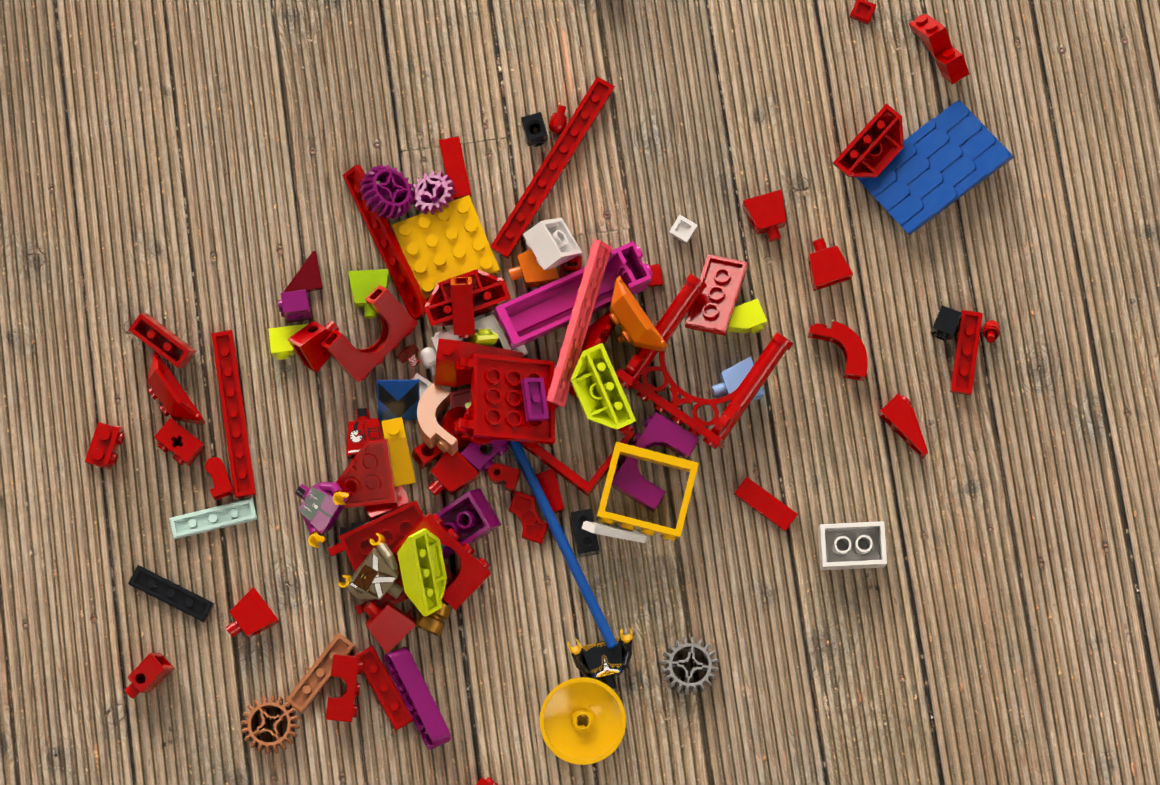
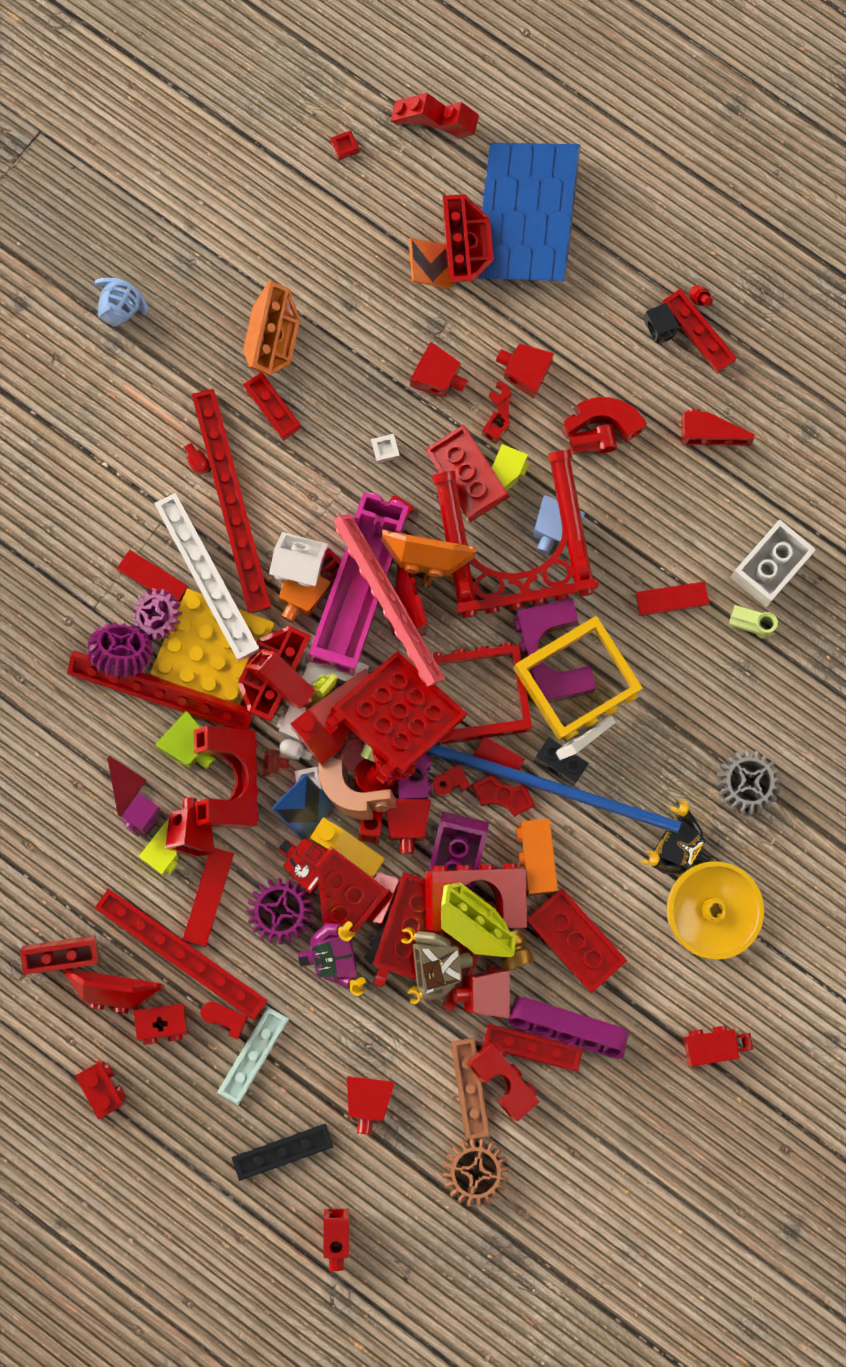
camera: 50 degrees left, 0 degrees up
(285, 396) = (208, 897): none -> red tile
(326, 464) = (273, 931): none -> magenta gear
(478, 651) = (576, 940): none -> red plate
(486, 200) = (207, 577): none -> white plate
(508, 576) = (537, 856): none -> orange brick
(534, 121) = (181, 476): black brick -> none
(534, 399) = (418, 694): magenta plate -> none
(600, 389) = (461, 635): neon yellow wedge -> none
(641, 133) = (272, 406): none -> red tile
(688, 85) = (272, 330): none -> orange wedge
(788, 274) = (501, 401): none -> red piece
(800, 567) = (750, 621): none -> yellowish green piece
(826, 358) = (599, 439): none -> red piece
(833, 137) = (428, 263): none -> orange piece

